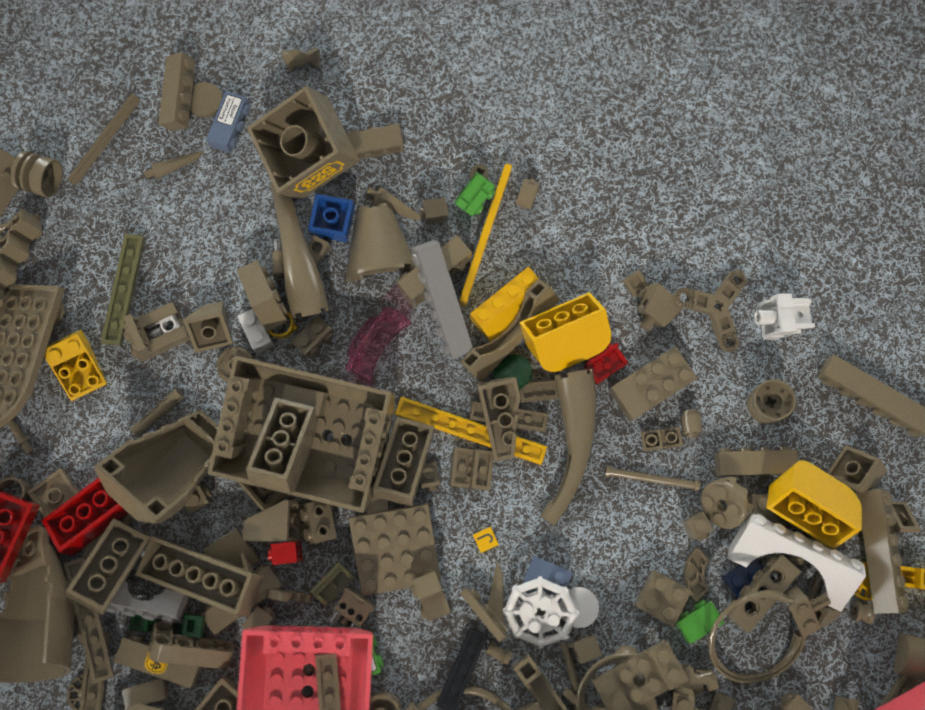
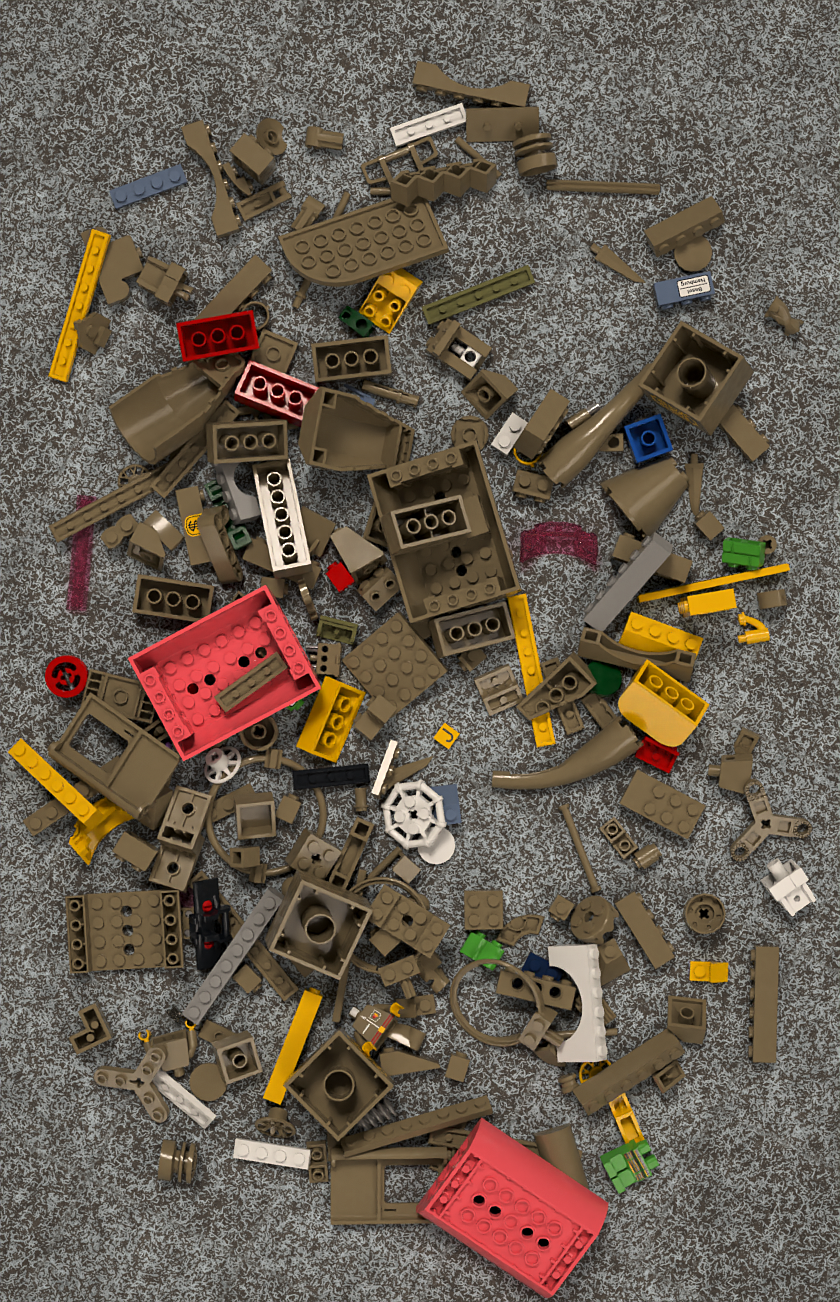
camera: 60 degrees right, 10 degrees up
(77, 405) = (357, 322): none -> dark green leg
(104, 426) = (352, 359): none -> dark tan brick
(199, 499) = (341, 478): dark tan bracket -> none
(410, 639) = (330, 719): none -> yellow slope
(500, 242) = (707, 603): none -> yellow arch
(551, 224) = (761, 634): none -> yellow plant
(816, 504) = (635, 993): yellow brick -> none
(821, 428) = (708, 971): none -> yellow slope

